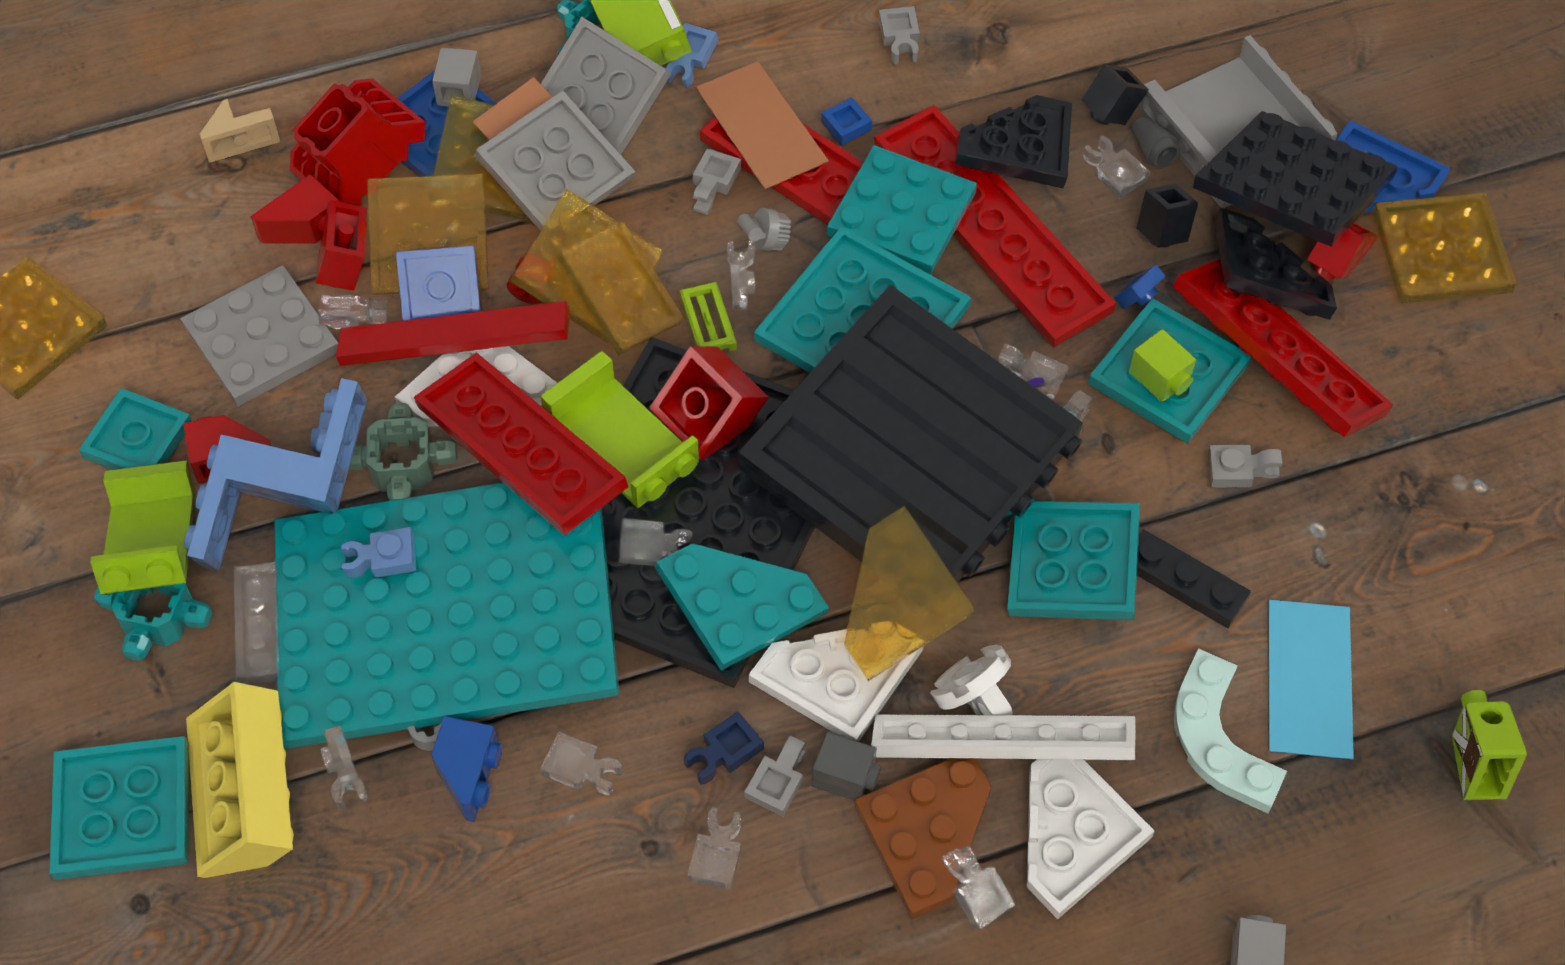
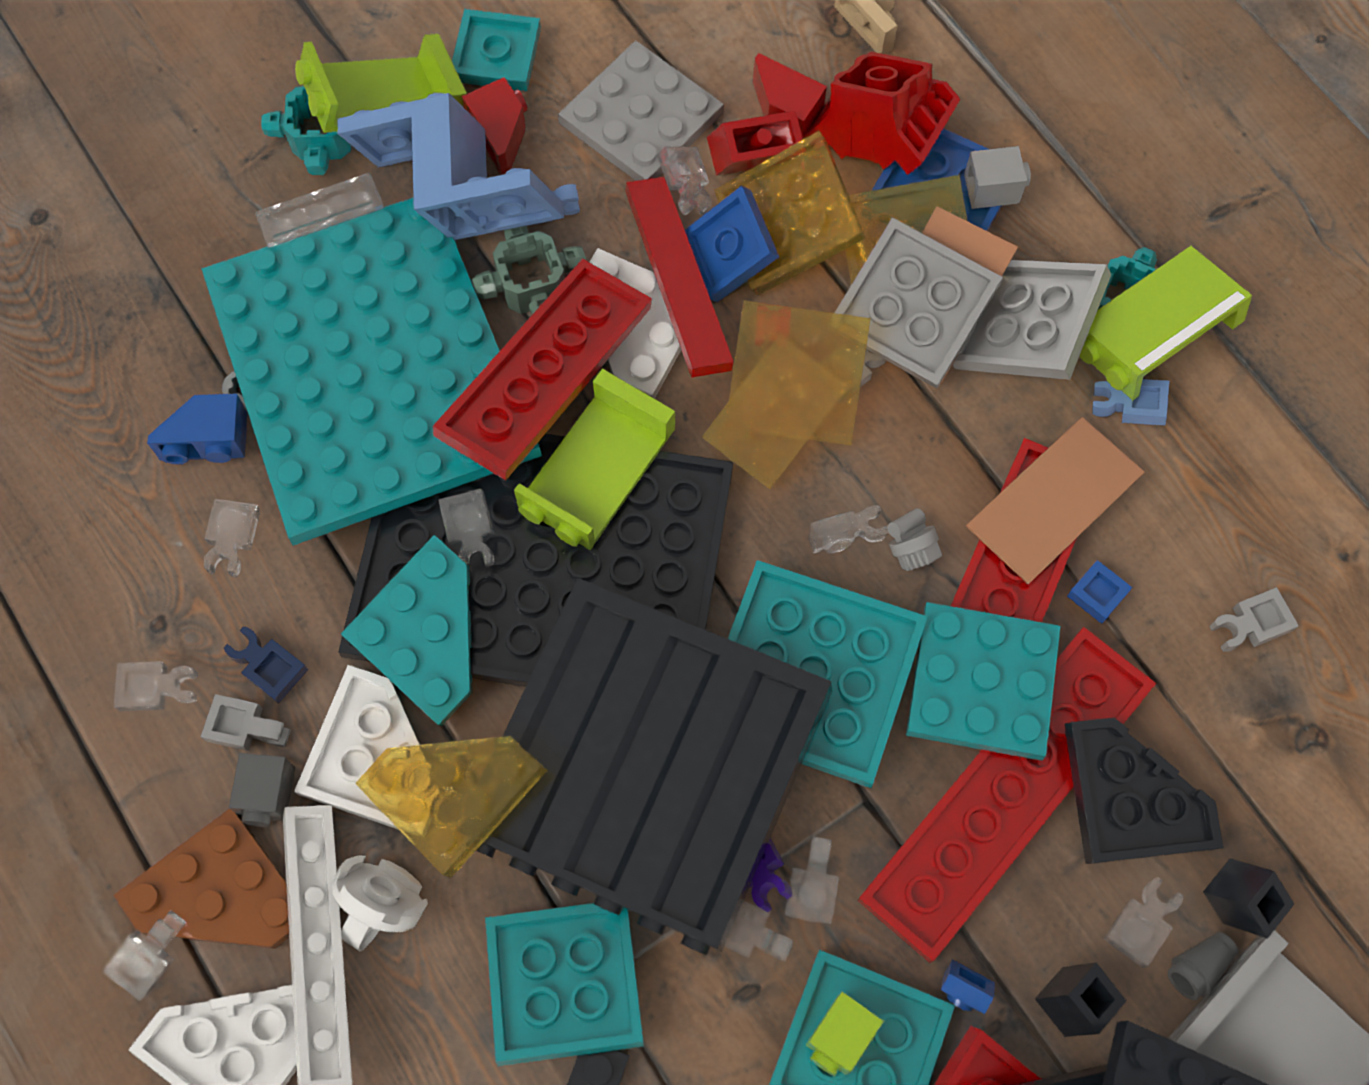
camera: 75 degrees right, 10 degrees up
(120, 808) = (116, 168): teal plate -> none
(238, 781) = (154, 252): light yellow slope -> none
(339, 759) = (187, 327): clear plate -> none
(386, 555) = (399, 288): medium blue plate -> none
(699, 291) = (752, 533): lime tile -> none
(708, 399) = (656, 537): red slope -> none
(713, 174) = (973, 470): light grey plate -> none

